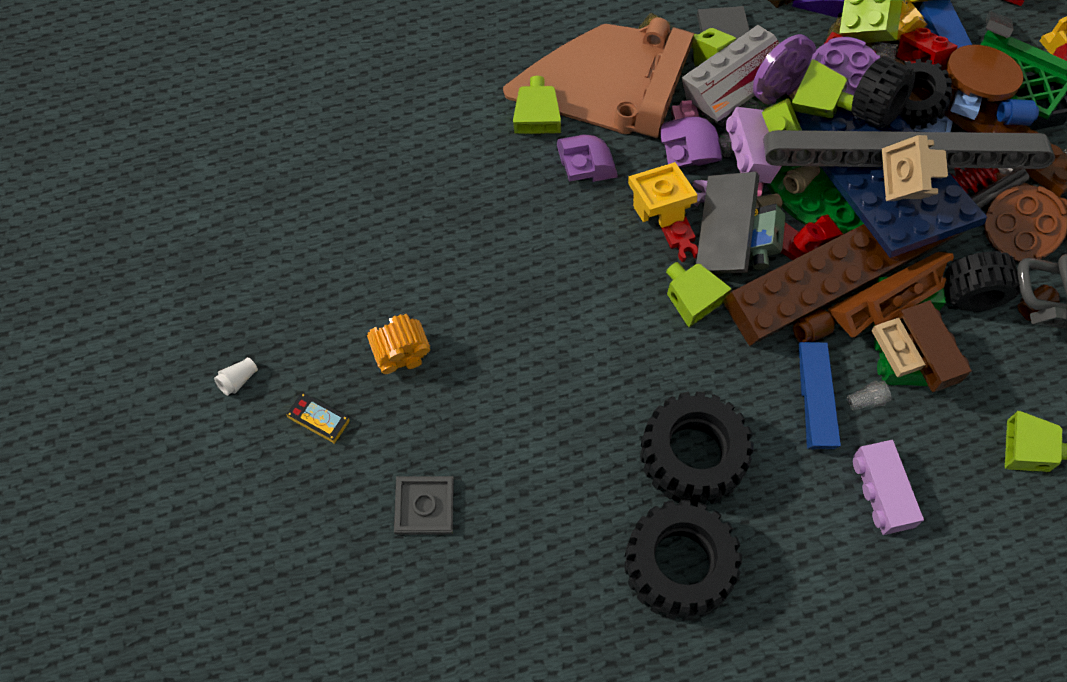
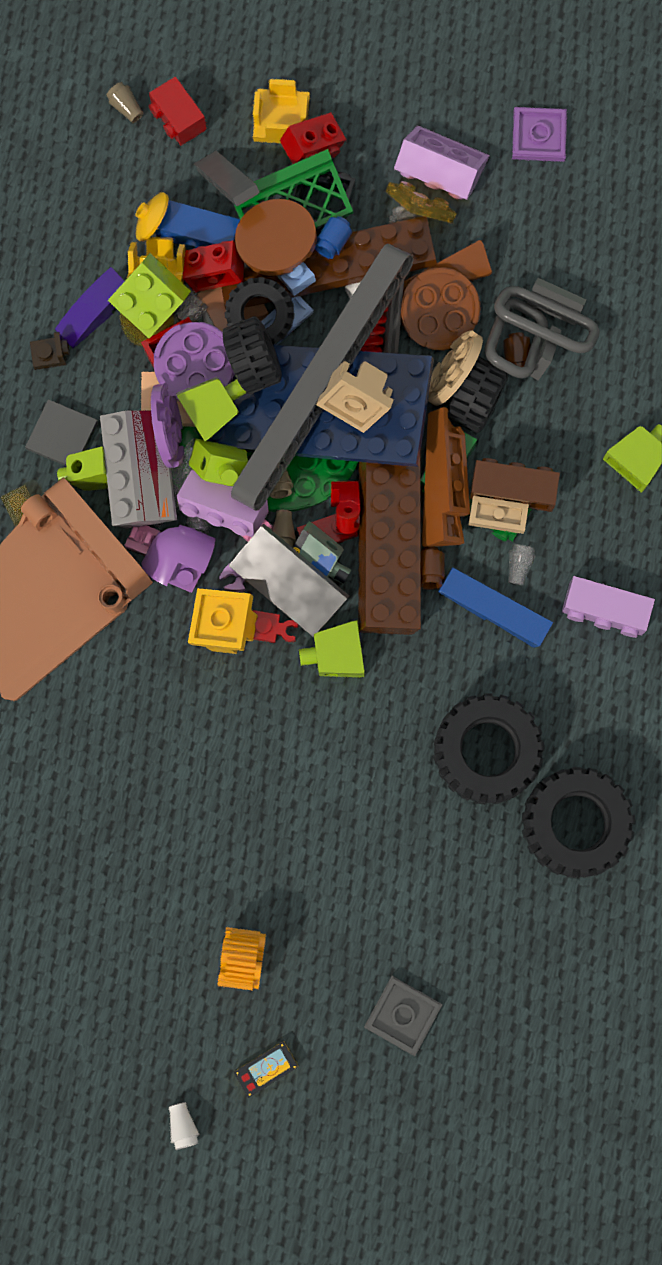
camera: 55 degrees left, 15 degrees up
(537, 109) = (52, 681): lime torso -> none
(586, 158) = (135, 665): medium lavender brick -> none
(1011, 246) = (454, 368): none -> tan tile

